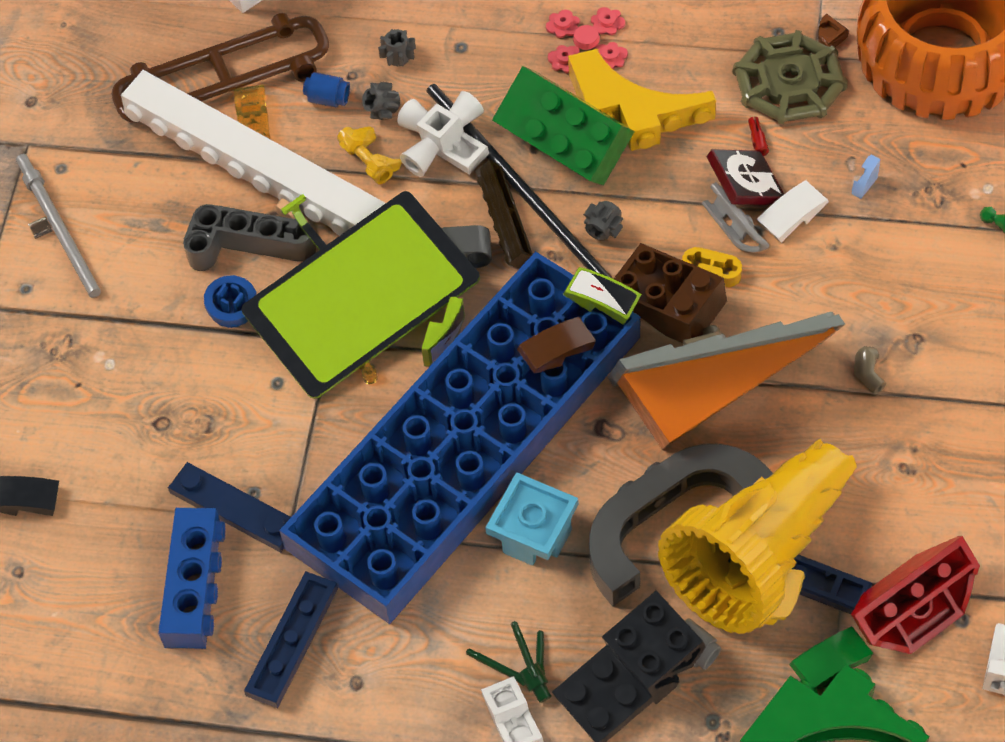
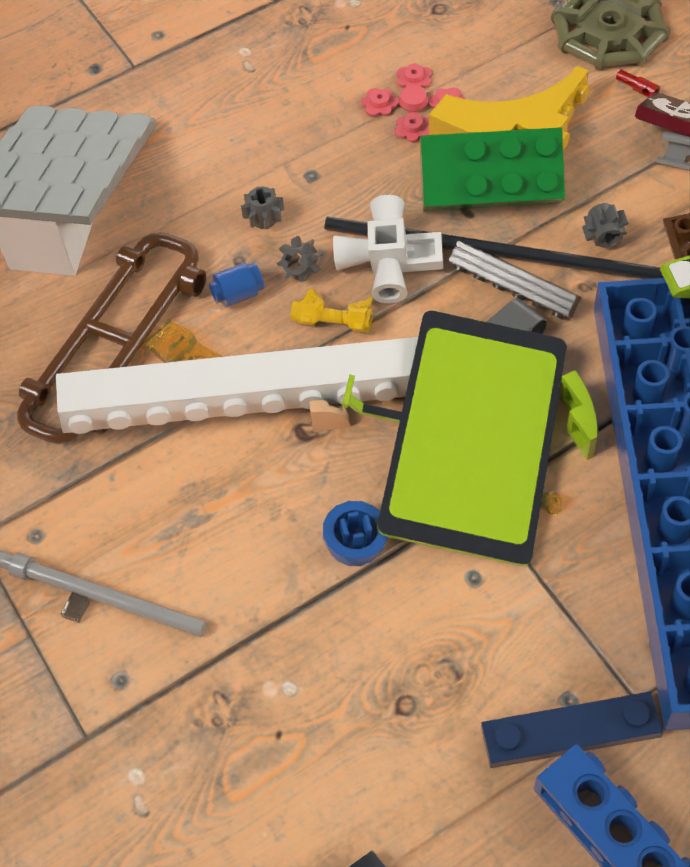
camera: 40 degrees left, 0 degrees up
(218, 227) = (358, 436): dark grey beam -> none

